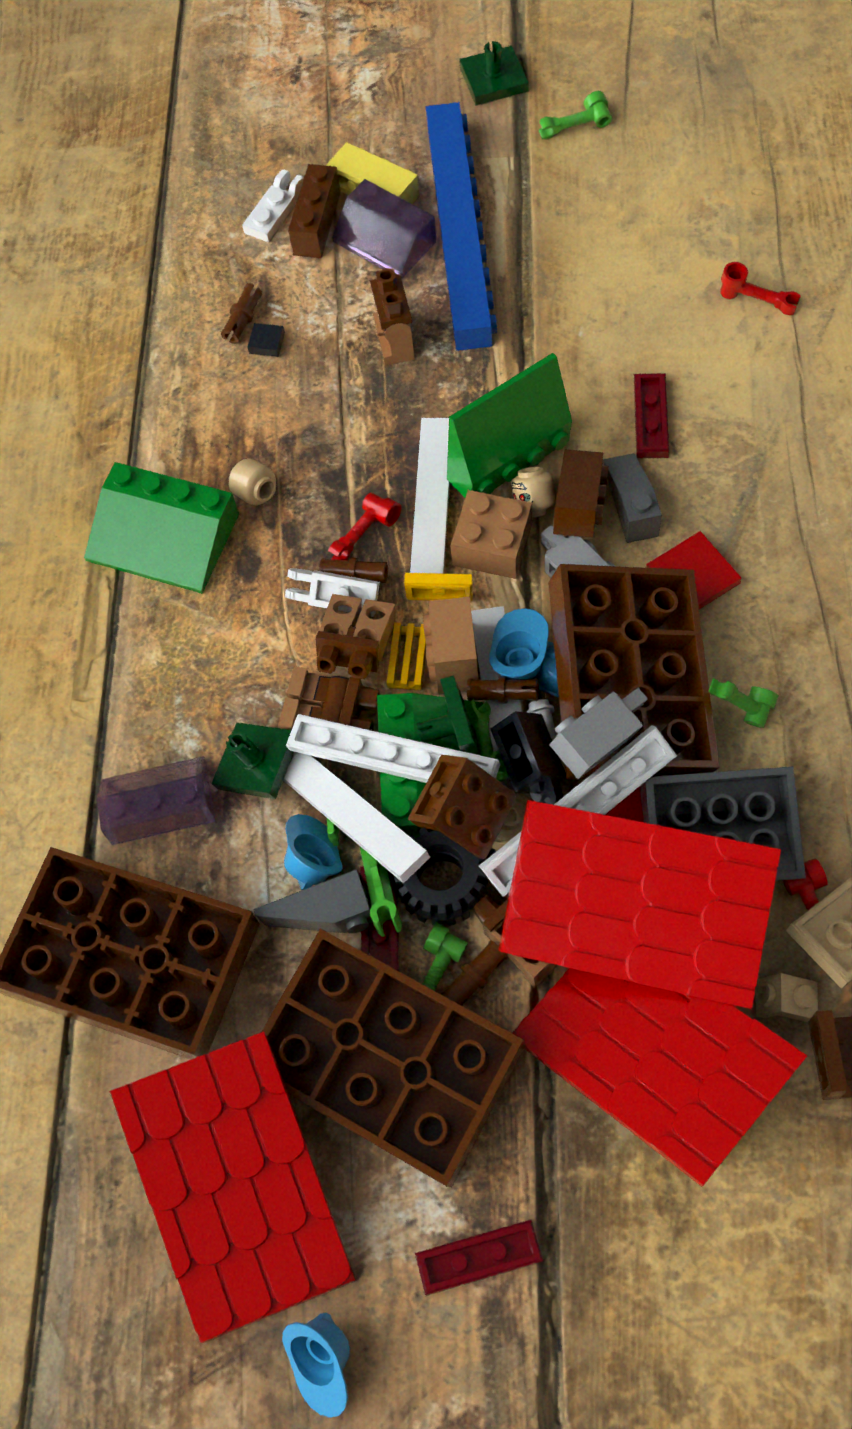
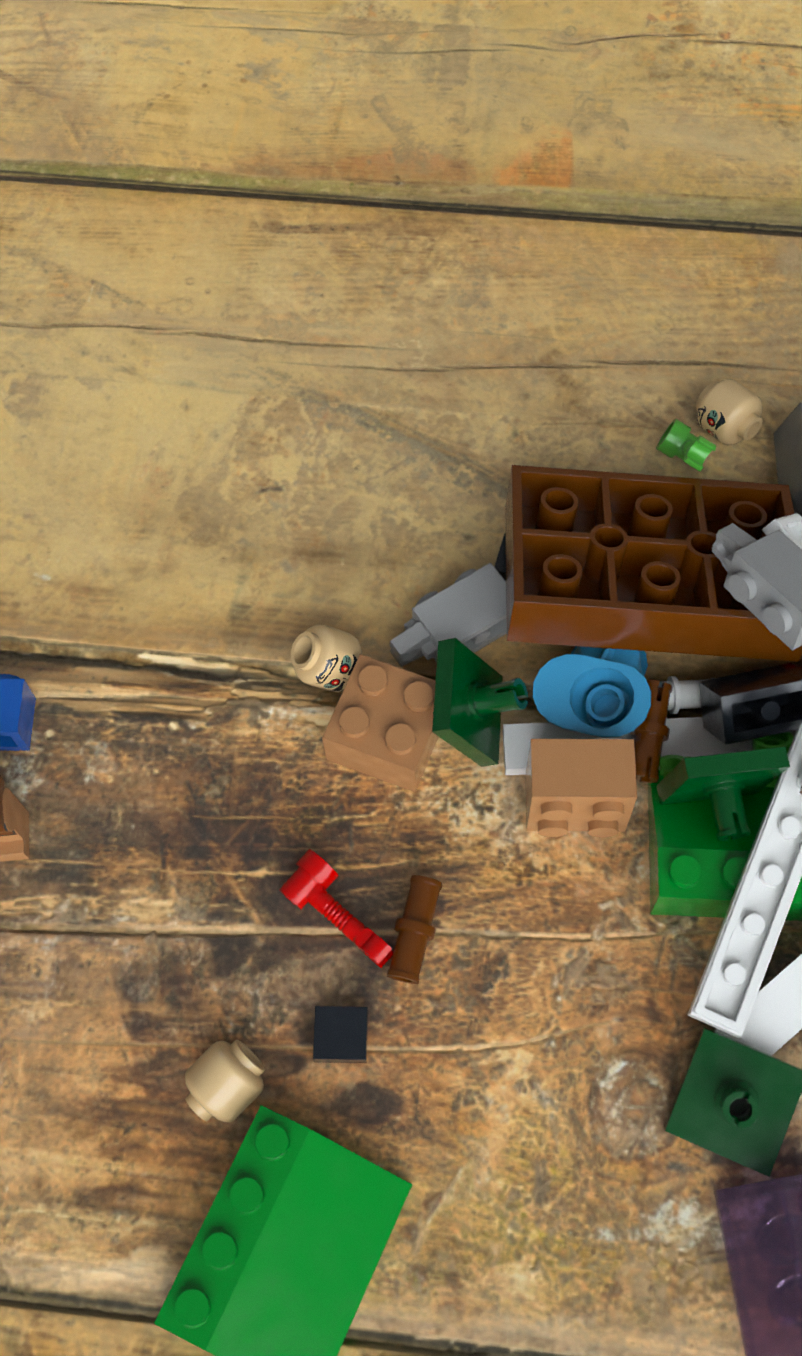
camera: 90 degrees left, 0 degrees up
(286, 541) = (340, 1034): none -> black tile
(326, 584) = (450, 963): white hinge -> none
(328, 698) = (657, 965): hips -> none
(353, 637) = (546, 929): hips -> none
(410, 631) = (572, 847): yellow tile -> none
(431, 498) = (305, 807): white tile -> none
(438, 586) = (464, 806): yellow tile -> none
(507, 574) = (471, 702): none -> dark green tile
(508, 429) = (243, 671): green slope -> none
(580, 493) = (349, 595): reddish brown brick -> none
(633, 498) = (347, 540): dark grey slope -> none
(651, 415) = (215, 505): dark red tile -> none
(711, 570) = (470, 490): red tile -> none
(734, 282) = (25, 365): red brick -> none
(797, 737) = (729, 411): none -> tan head

